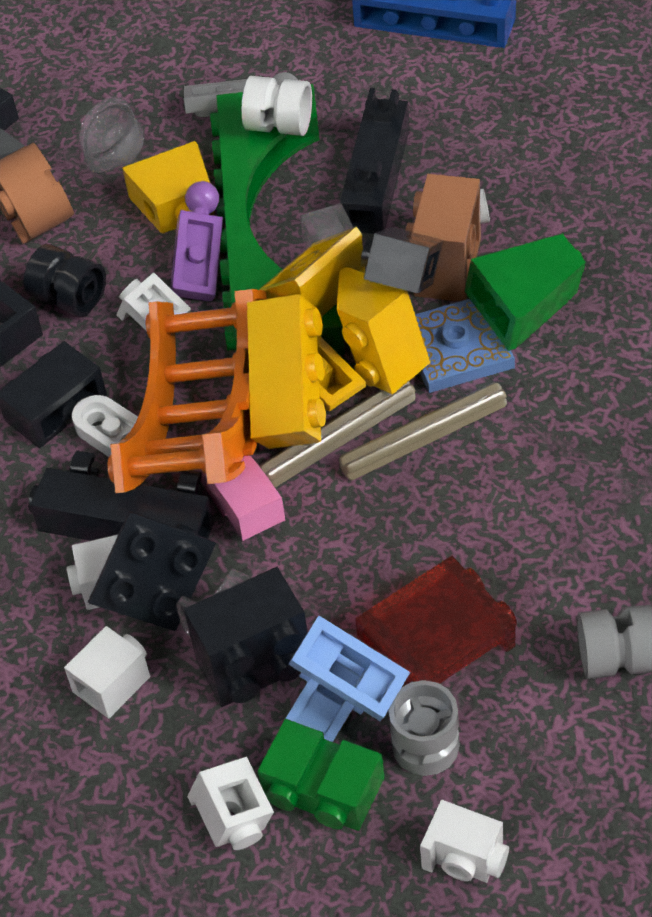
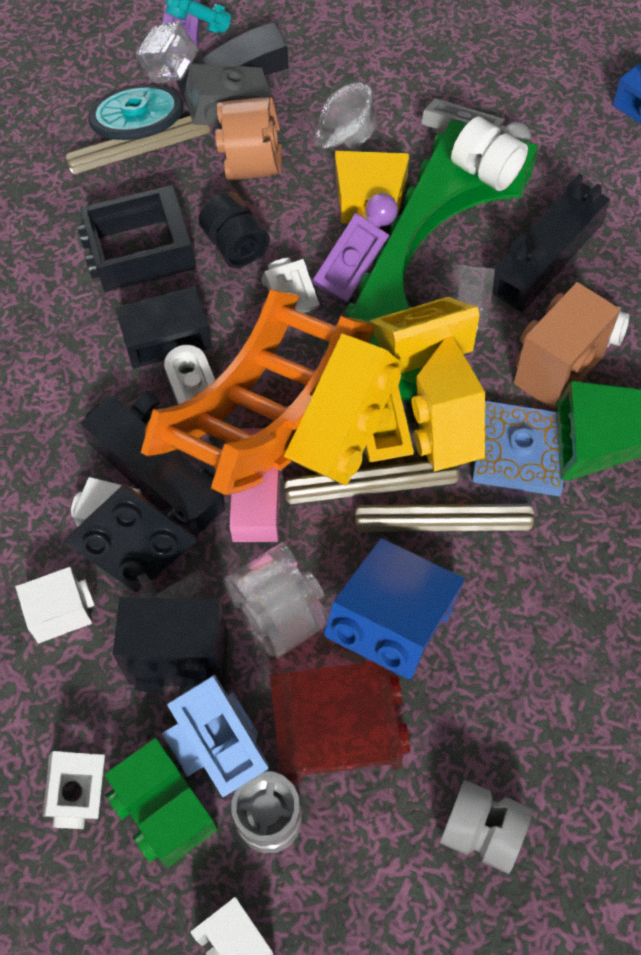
camera: 25 degrees right, 10 degrees up
(324, 557) = (278, 600): none -> clear brick
(401, 259) = (499, 358): brick -> none
(431, 512) = (393, 607): none -> blue panel

